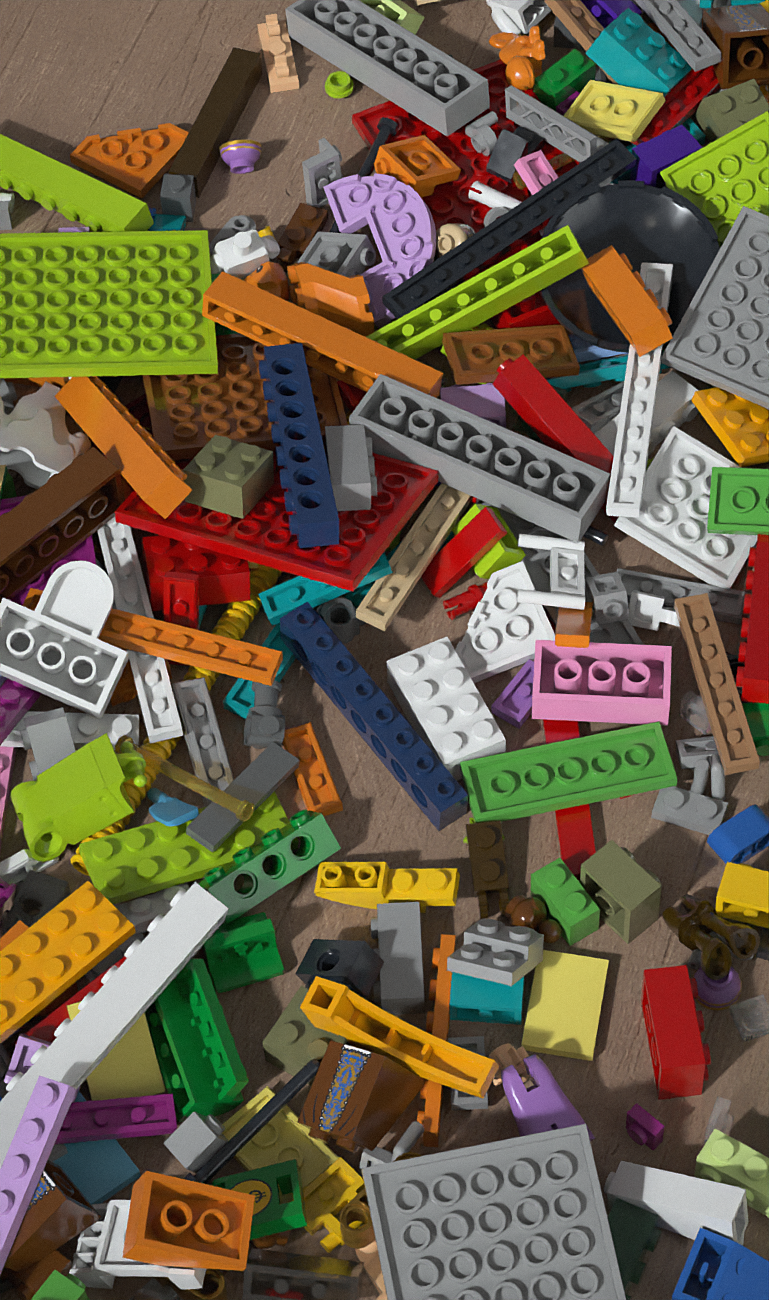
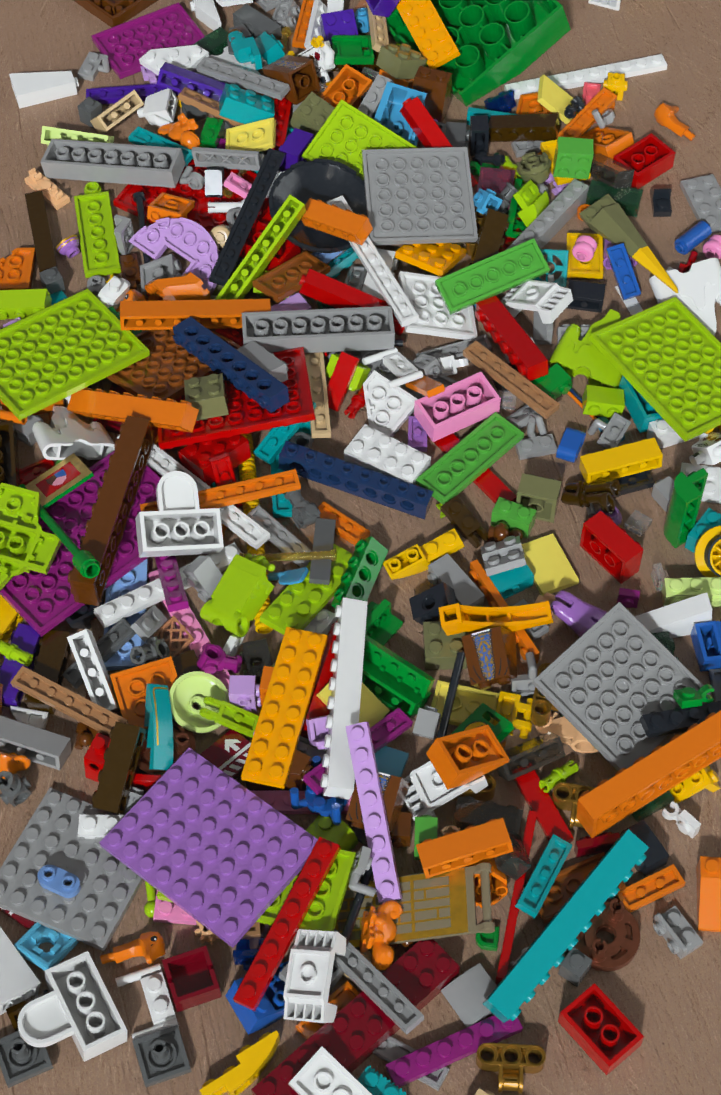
camera: 35 degrees left, 0 degrees up
(277, 178) = (97, 234): none -> lime plate
(470, 51) = (144, 137): none -> teal plate

